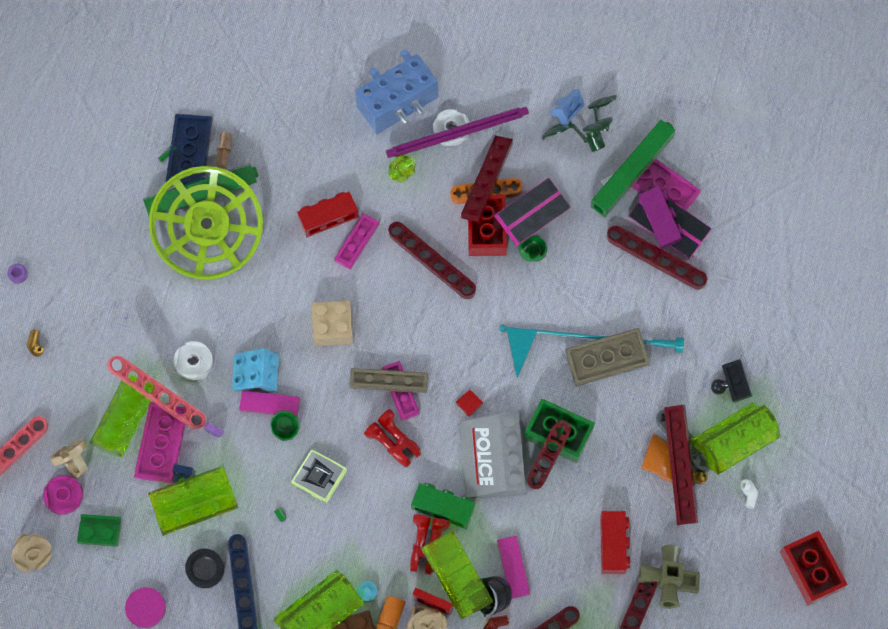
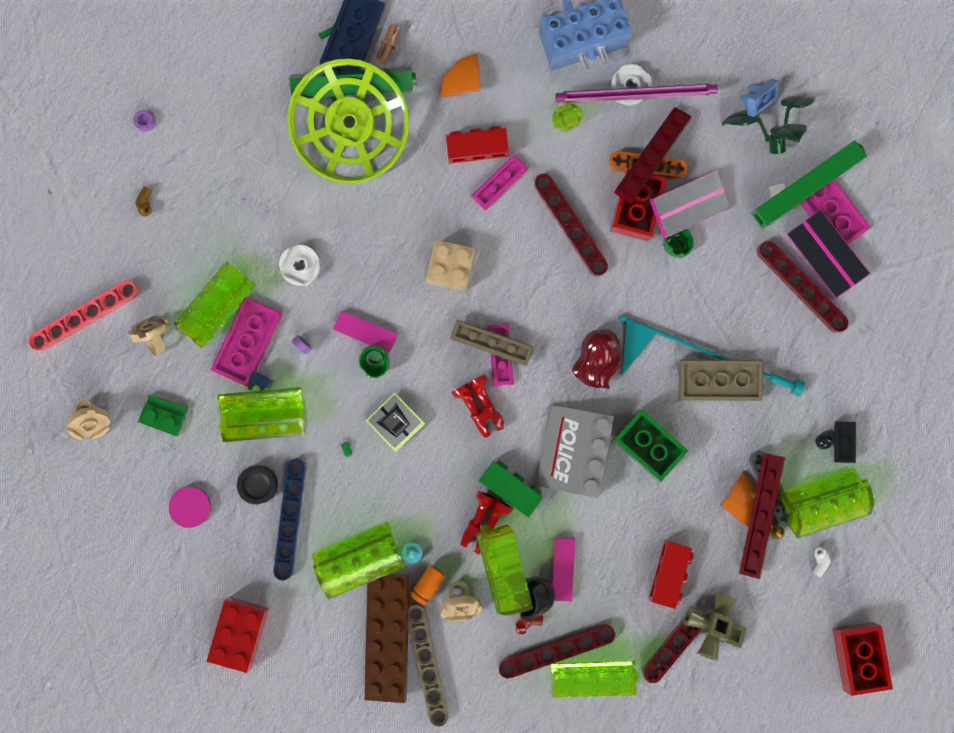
camera: 10 degrees right, 15 degrees up
(63, 495) = (136, 368): dark pink tile -> none
(155, 395) = (253, 292): coral beam -> none
(255, 370) = (360, 294): medium azure bracket -> none
(298, 161) = (462, 77): none -> orange brick
(432, 601) = (473, 586): red tile -> none
(469, 403) = (566, 388): red tile -> none
(491, 368) = (598, 359): none -> dark red piece
(550, 455) = (634, 472): dark red beam -> none
(661, 217) = (822, 247): magenta brick -> none

